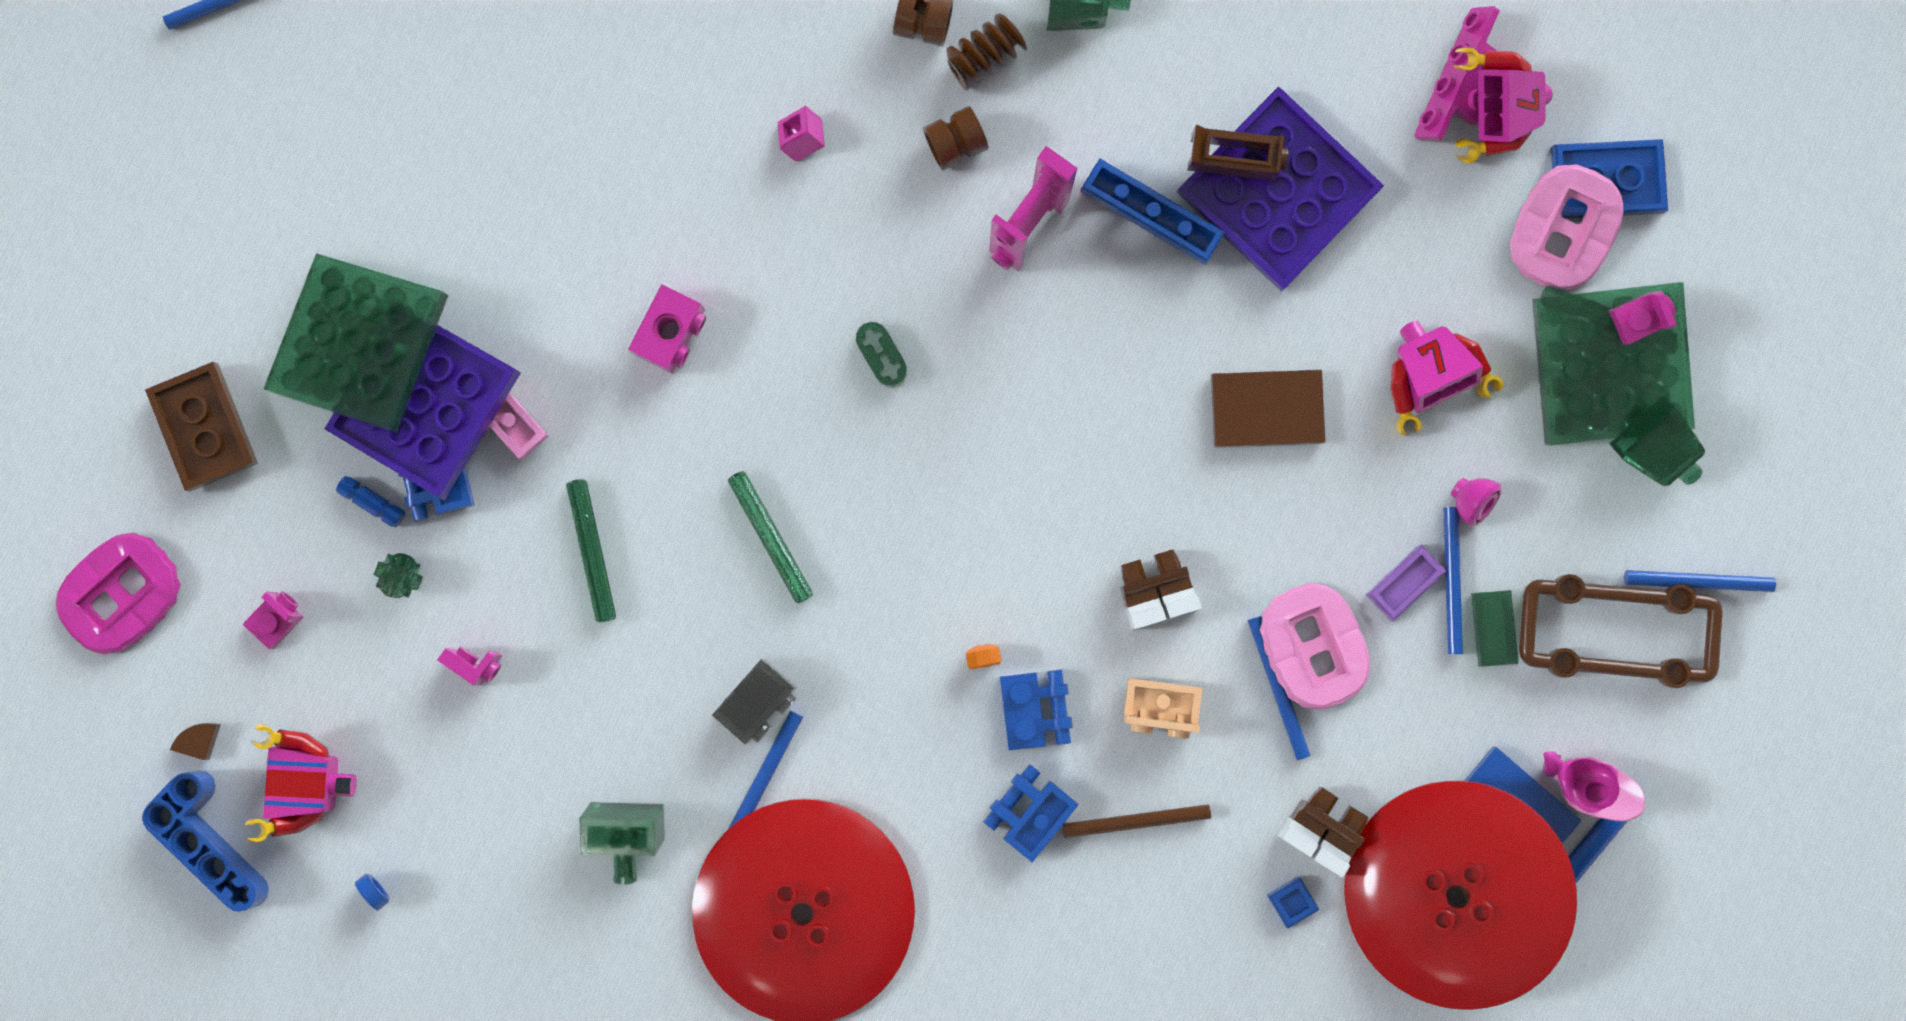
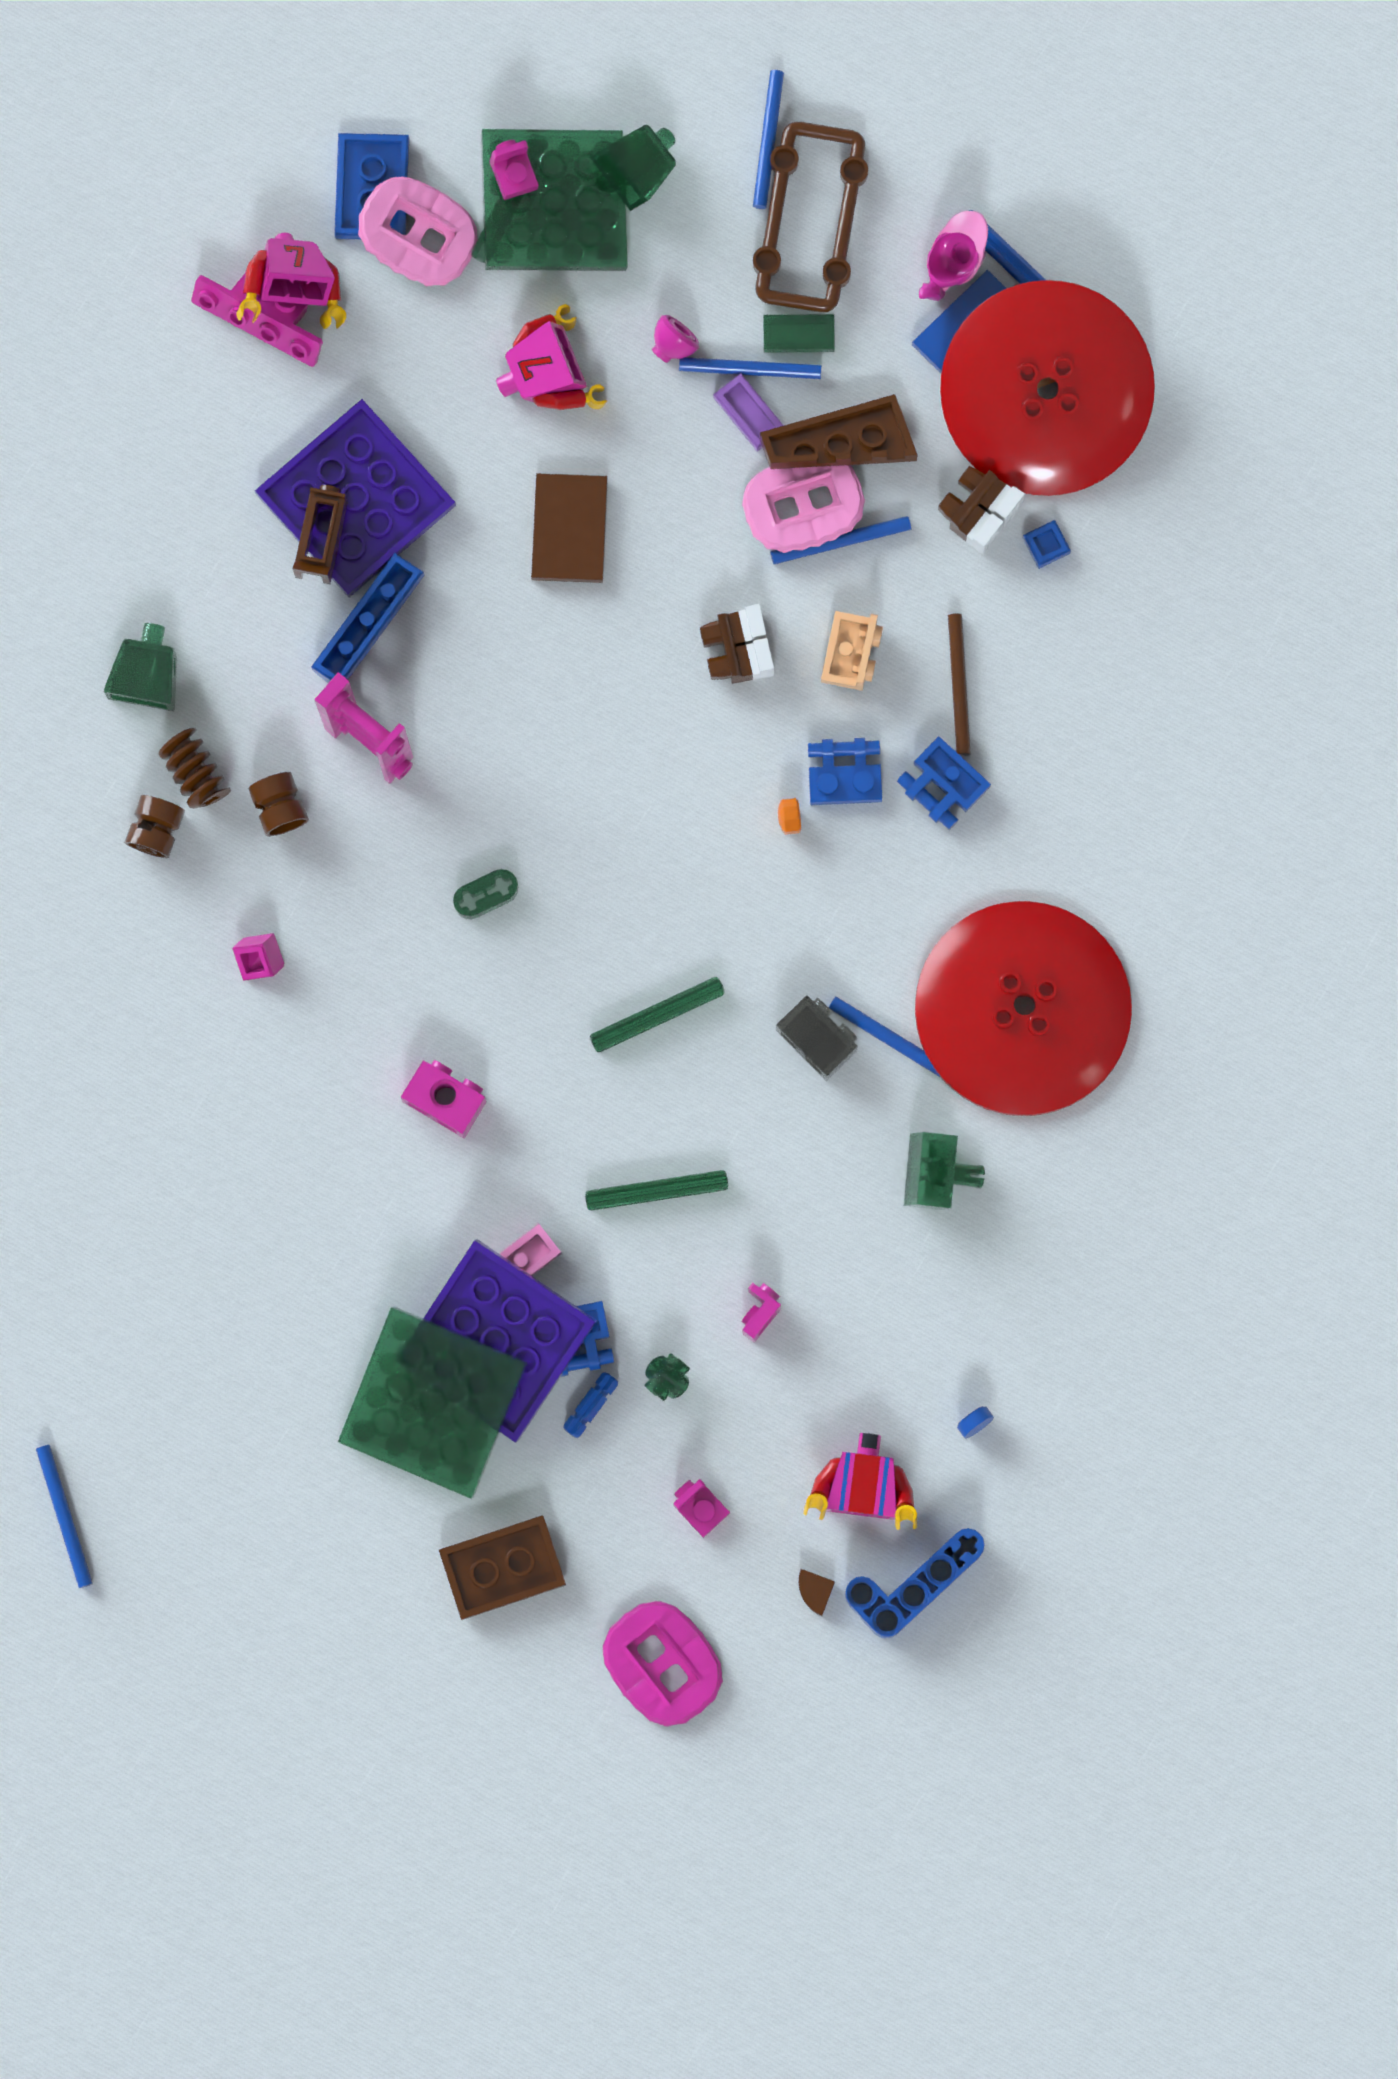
camera: 85 degrees left, 5 degrees down
(1388, 688) = (850, 436): none -> reddish brown wing

